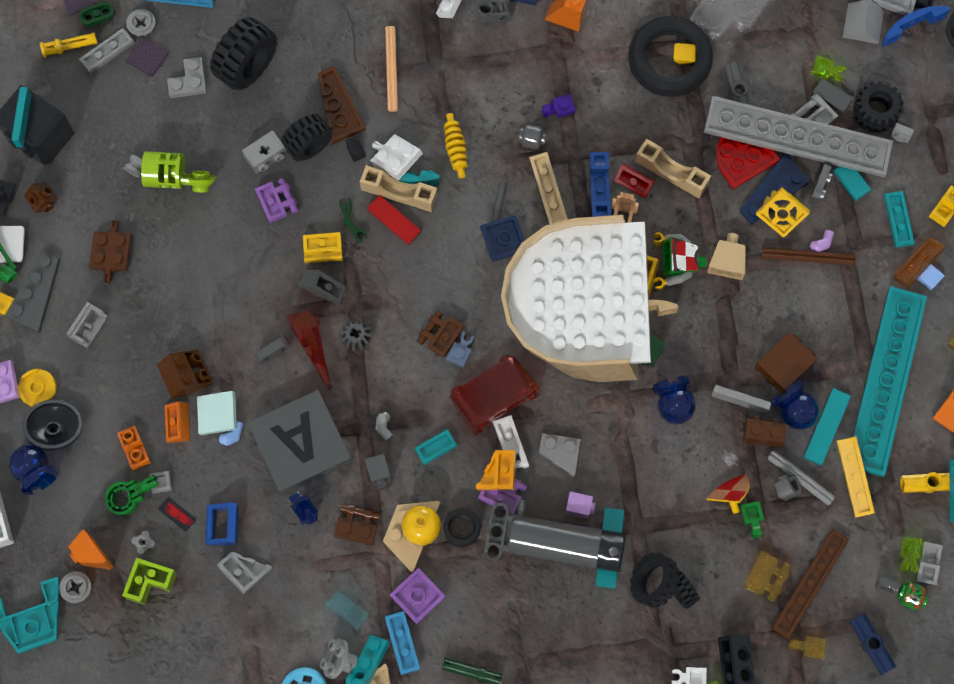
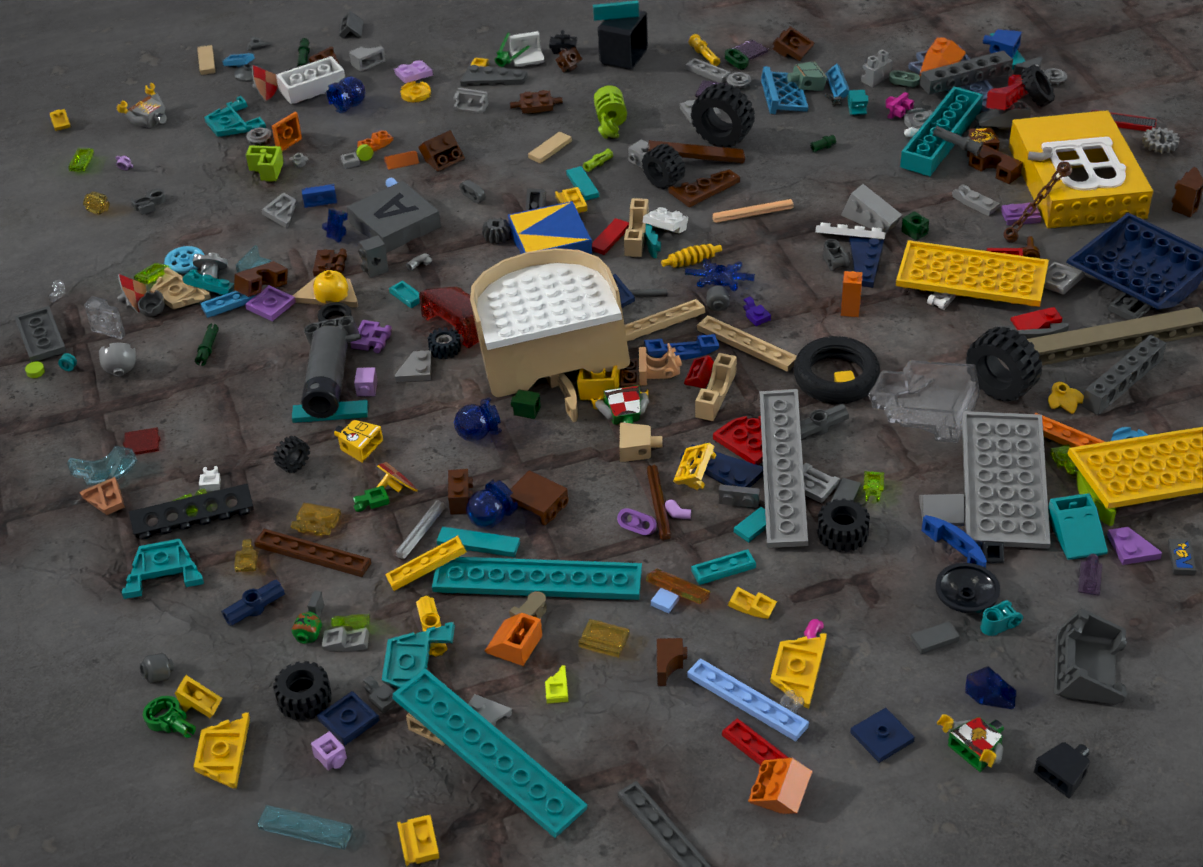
camera: 80 degrees right, 30 degrees down
(50, 417) = (383, 96): black dish -> none
(134, 498) = (335, 143): green pin -> none
(156, 462) = (364, 152): none -> lime tile
(177, 514) = (325, 174): sticker -> none
(207, 252) = (549, 147): none -> tan tile
(216, 413) = (411, 173): light aqua tile -> none
(251, 205) = (597, 160): none -> lime pin
(271, 202) = (605, 167): medium lavender plate -> none
(279, 99) = (704, 152): none -> reddish brown tile
(287, 230) = (582, 181): none -> teal tile
(308, 334) = (486, 203): clear red wedge -> none
(346, 210) = (612, 209): dark green piece -> none
(355, 149) = (668, 201): black slope -> none
(373, 589) = (251, 280): none -> reddish brown arch
(382, 280) = (549, 228): none -> blue tile
(498, 125) = (719, 274): none -> clear blue piece
(499, 472) = (387, 324): light orange wing -> none
(510, 440) = (415, 333): white plate -> none
(544, 417) = (444, 343): none -> black bush
(606, 126) = (747, 343): none -> tan plate
(665, 522) = (359, 439): none -> yellow torso
(667, 585) = (298, 428): black tyre -> none
(730, 459) = (429, 473): clear plate -> none
(741, 399) = (493, 465): light grey tile -> none
(787, 487) = (406, 515): flat silver plate -> none
(834, 280) = (638, 521): none -> medium lavender plate
(901, 133) = (820, 551): light grey plate -> none
(927, 392) = (534, 606): none -> dark tan leg

